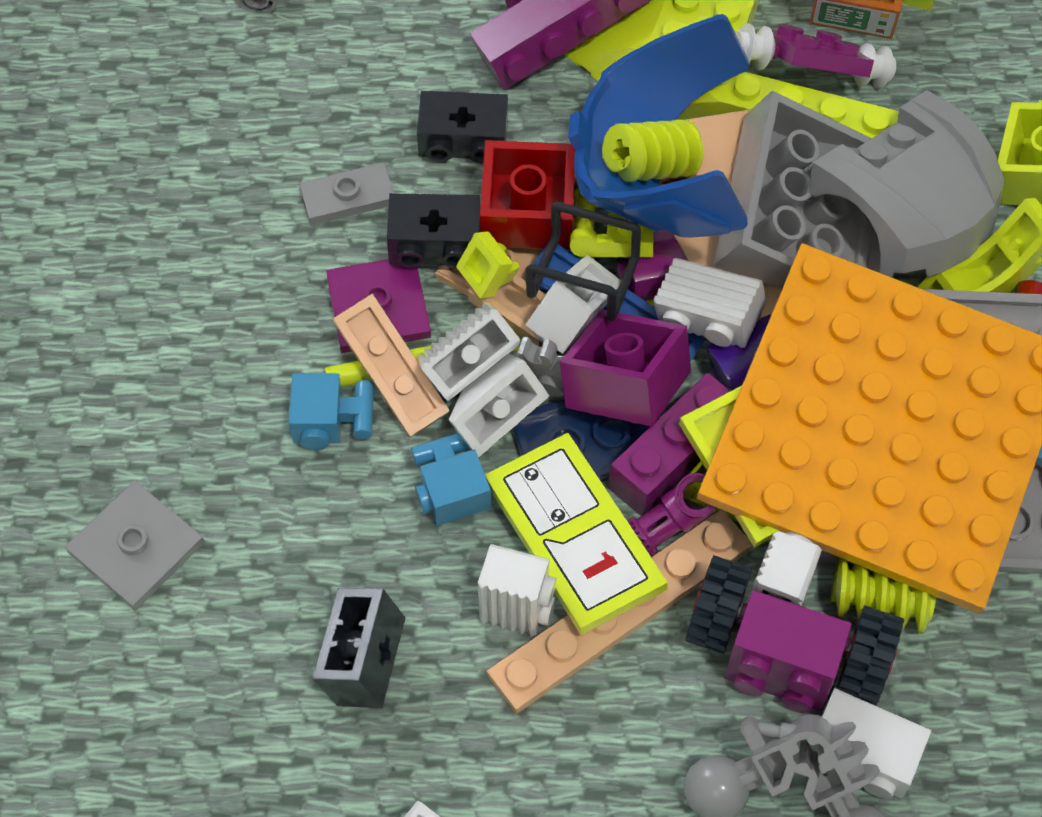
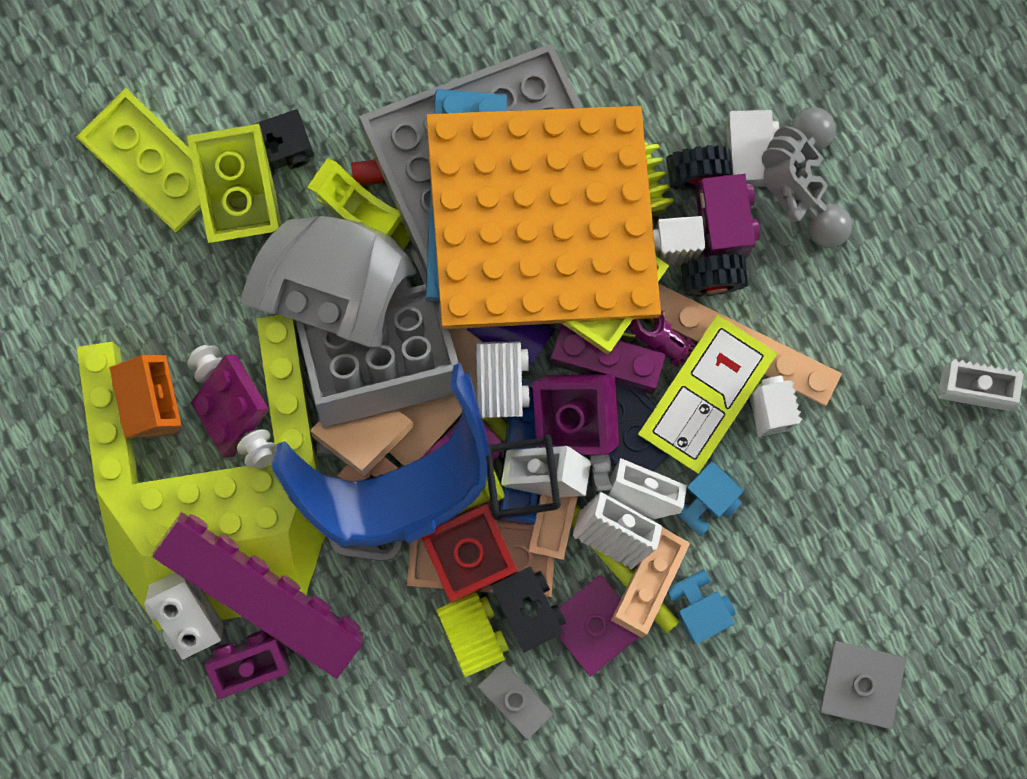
camera: 120 degrees left, 20 degrees up
(359, 647) = (862, 488): black brick -> none
(439, 169) = (472, 633): none -> neon yellow brick
(459, 124) = (400, 628): black brick -> none
(486, 265) = (546, 550): neon yellow tile -> none
(653, 150) = (405, 468): neon yellow piece -> none

